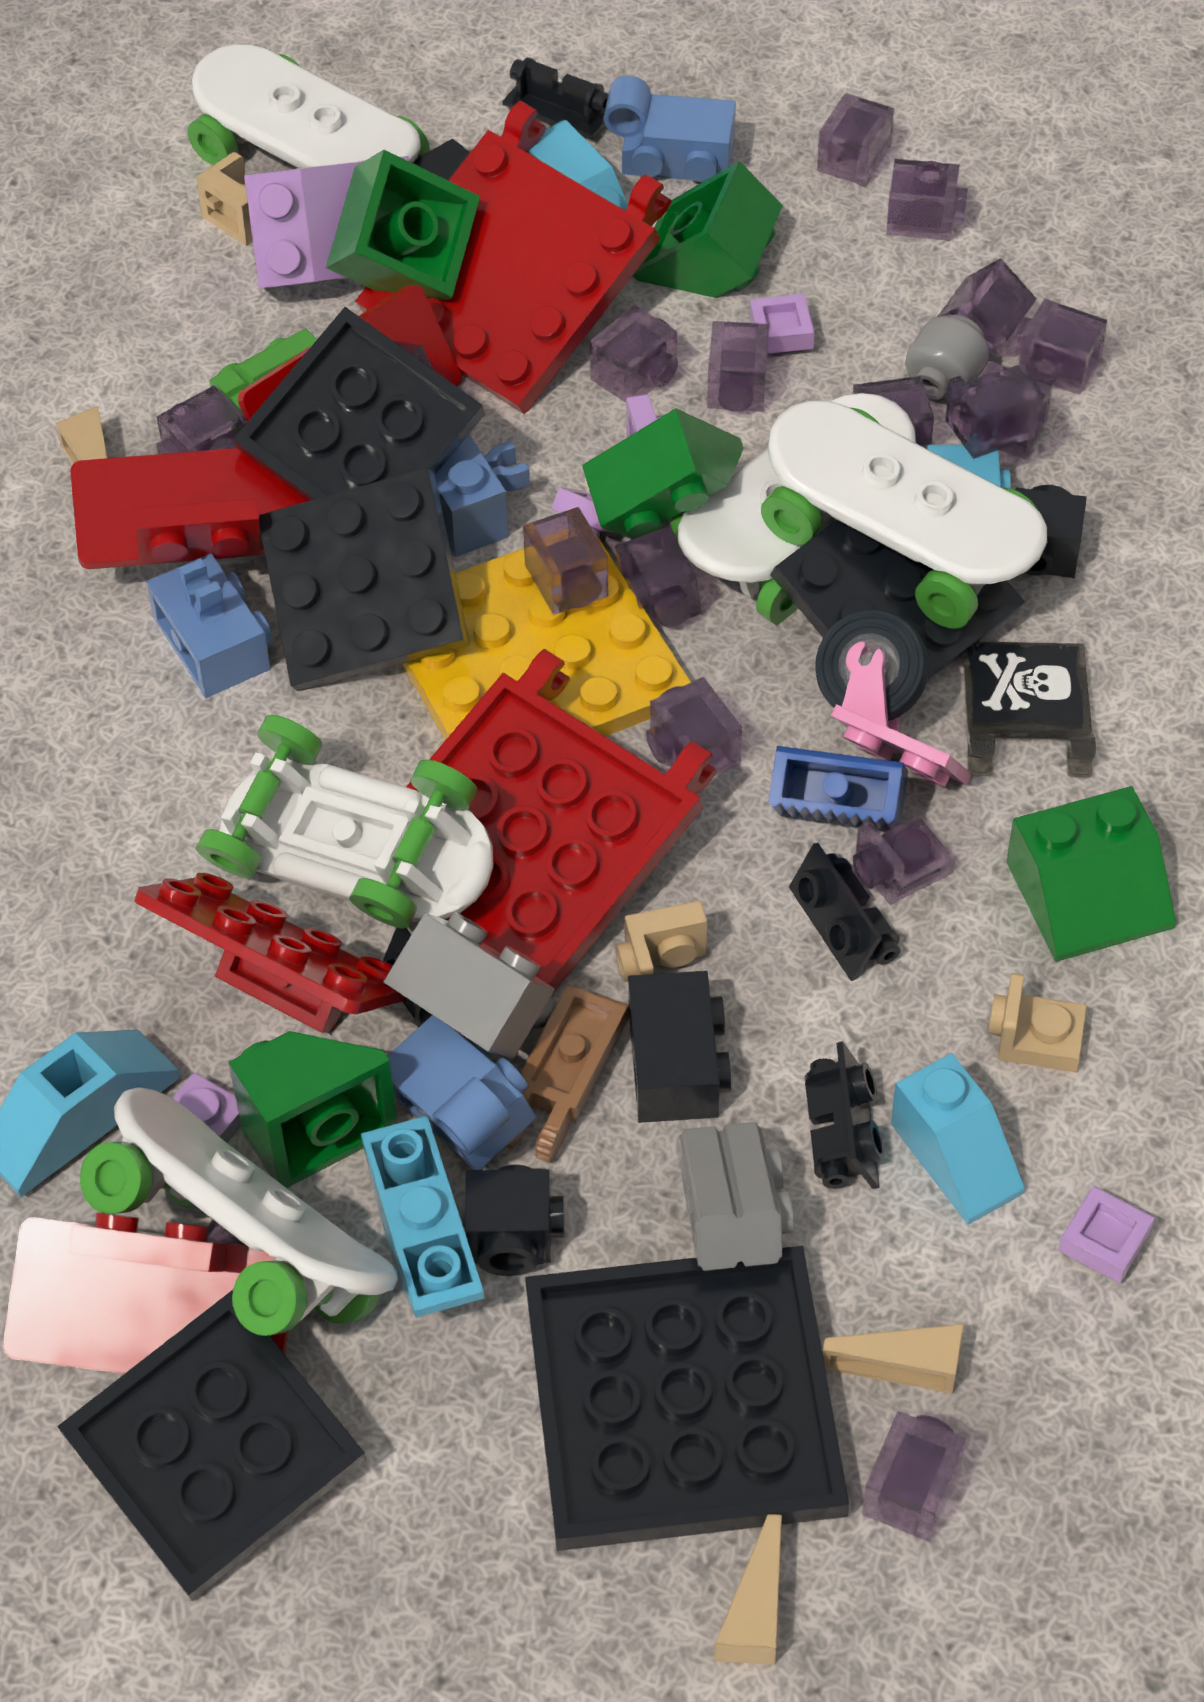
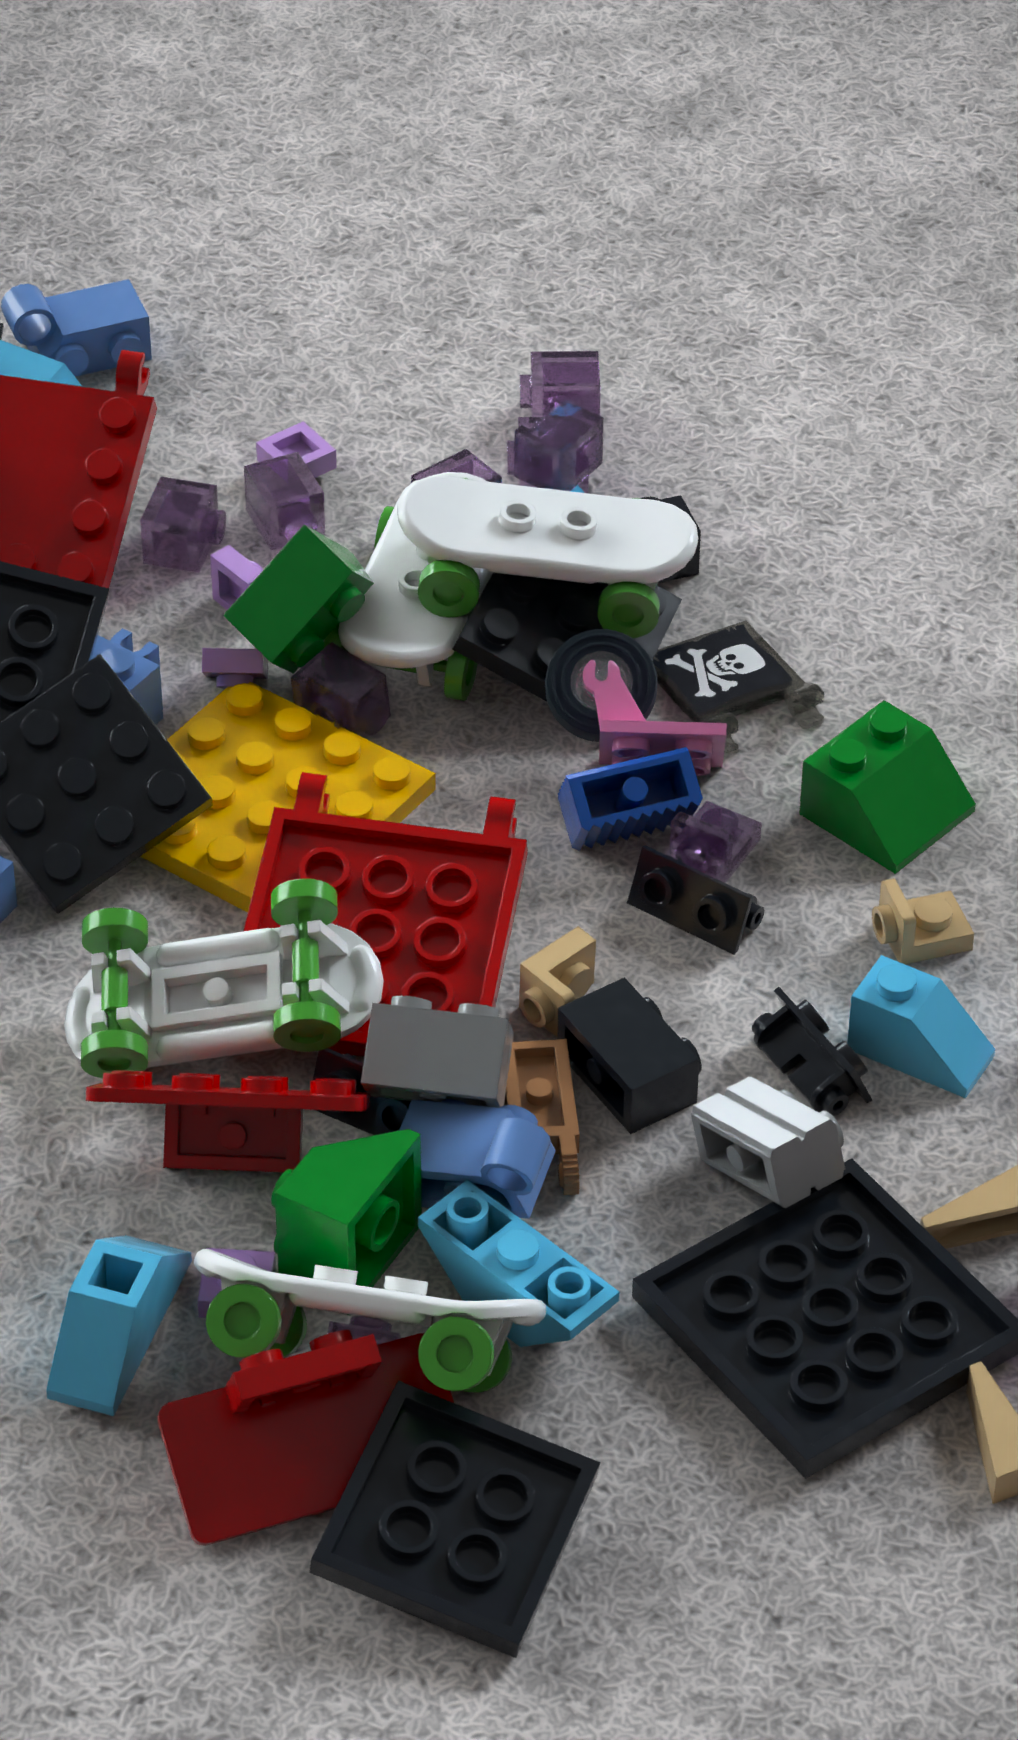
camera: 30 degrees left, 10 degrees down
(511, 1218) = (592, 1231): black brick -> none
(566, 560) = (257, 703): brick -> none
(694, 715) = (458, 794): clear purple brick -> none
(713, 235) = (194, 398): green slope -> none
(855, 139) = (255, 281): clear purple brick -> none
(925, 199) = (355, 311): clear purple brick -> none
(946, 350) = (471, 422): light grey head -> none
(995, 301) = (479, 379): clear purple brick -> none

